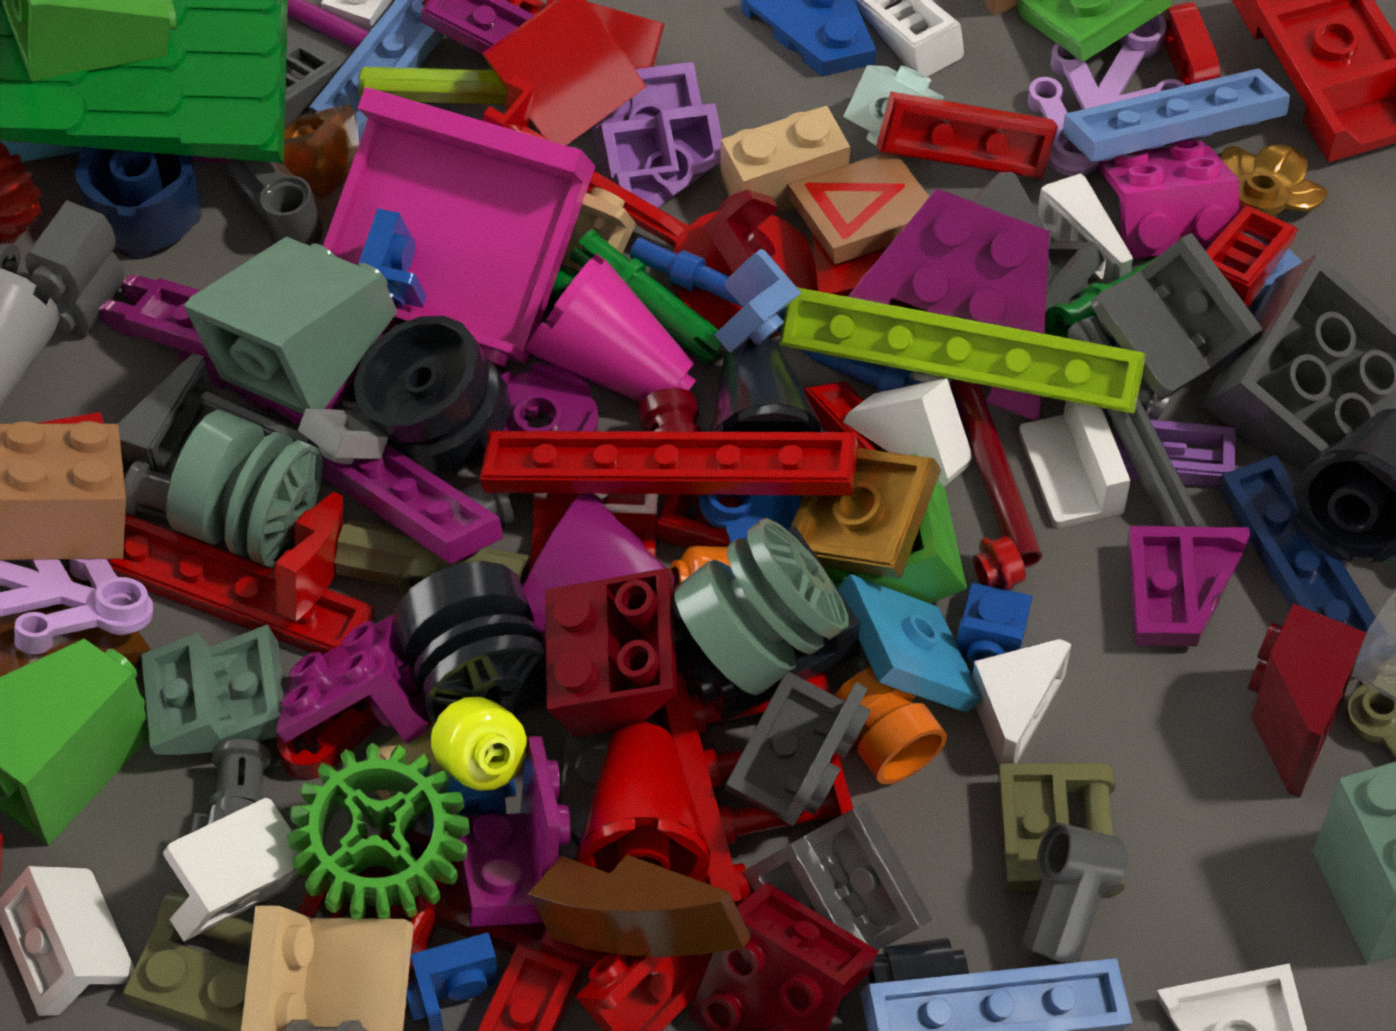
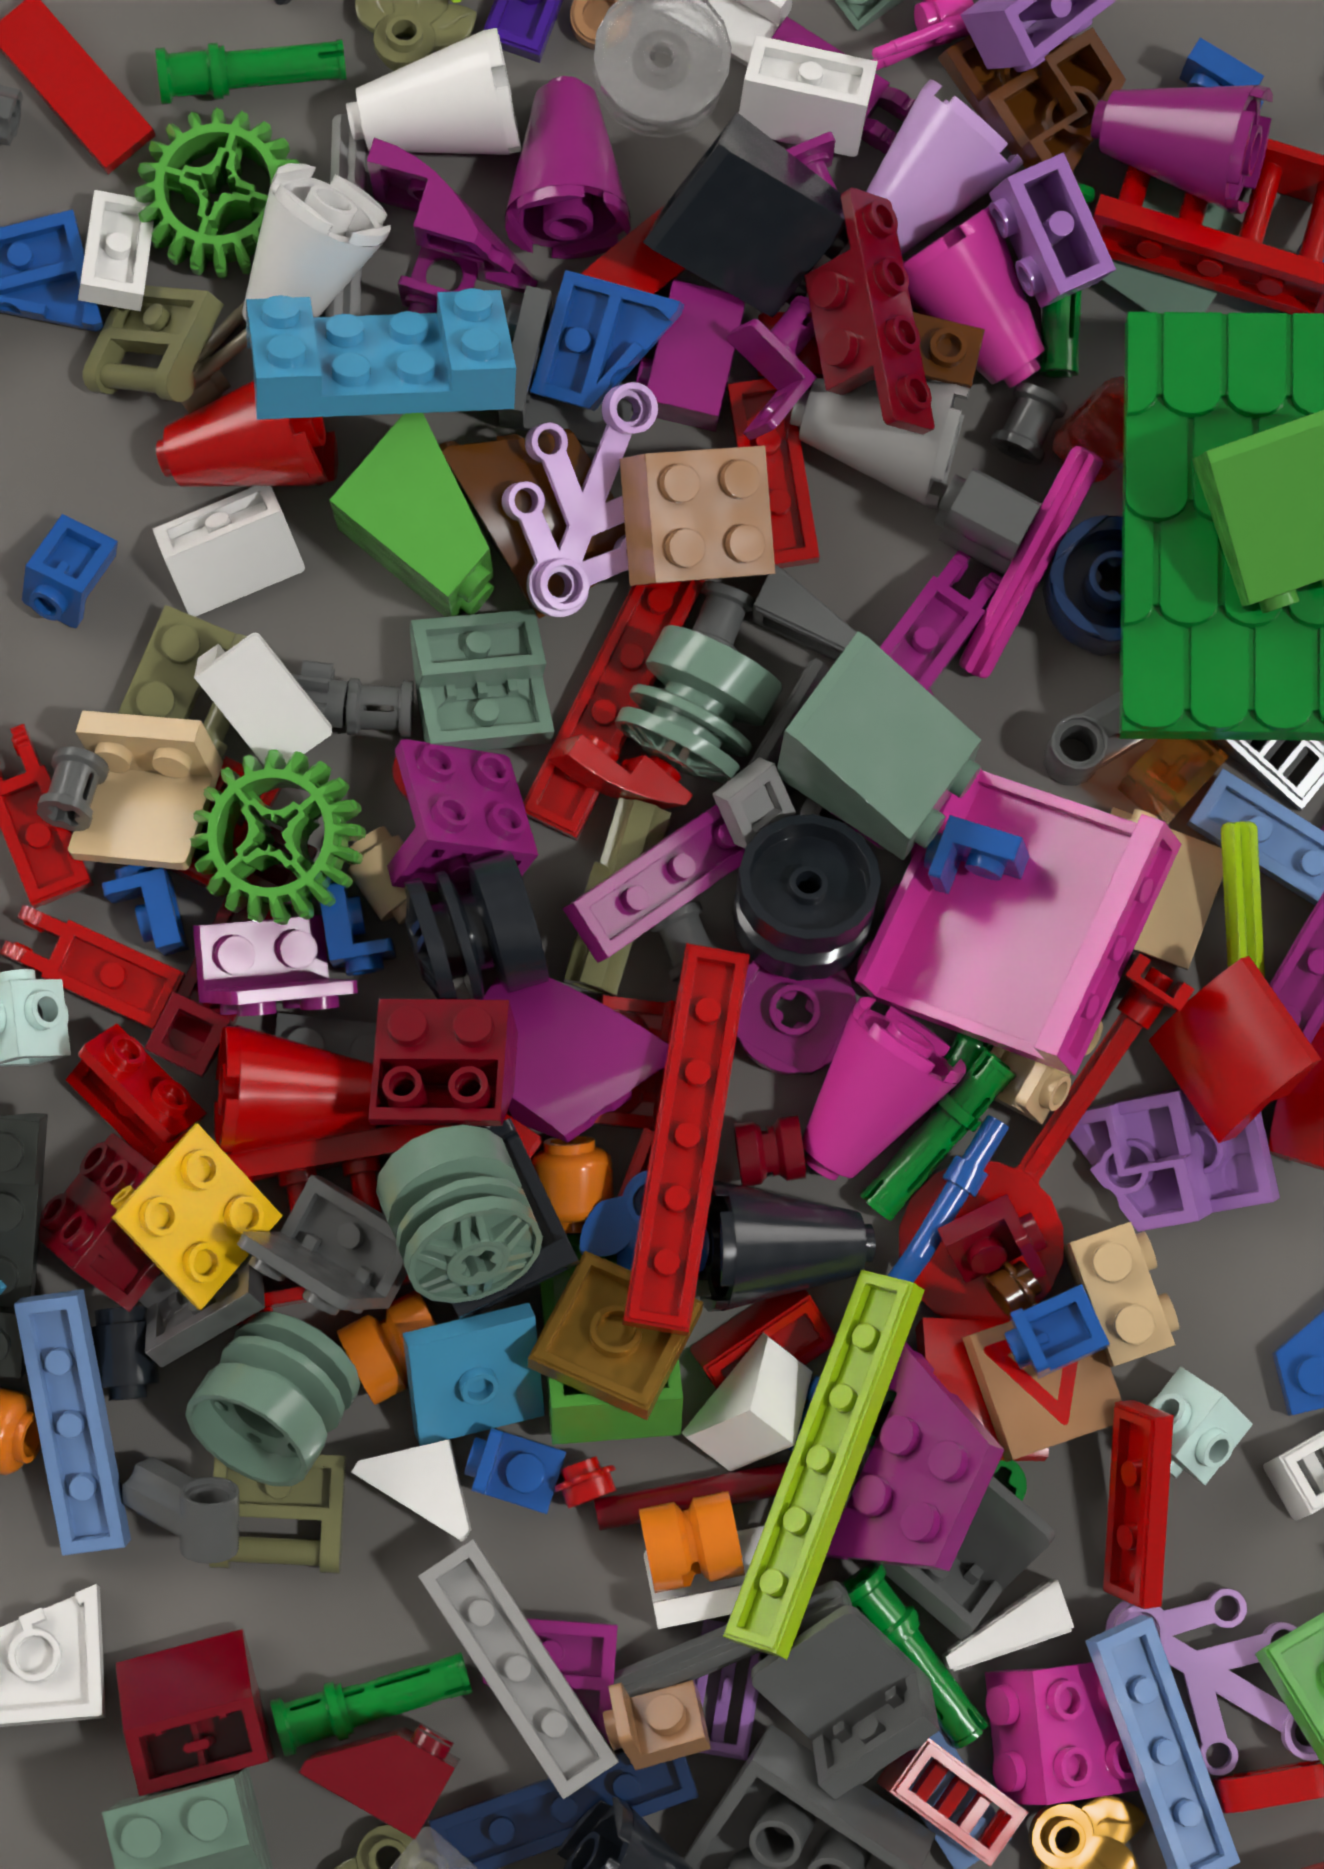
camera: 90 degrees right, 25 degrees up
(130, 248) = (1030, 562): none -> dark pink axle
(479, 743) = (357, 933): neon yellow head -> none
(636, 910) = (159, 1073): reddish brown slope -> none
(763, 294) = (875, 1246): medium blue bracket -> none
(784, 870) = (194, 1215): none -> yellow hinge
(788, 234) = (1012, 1287): none -> reddish brown plate
(825, 180) = (1056, 1332): none -> blue bracket
(956, 803) = (273, 1399): none -> sand green wheel
(1044, 463) = (691, 1542): none -> orange wheel
(1183, 592) = (518, 1668): none -> light grey plate
(1216, 481) = (657, 1724): none -> medium nougat bracket
(1245, 758) = (341, 1709): none -> green pin
(1275, 879) = (192, 1712): none -> dark red slope

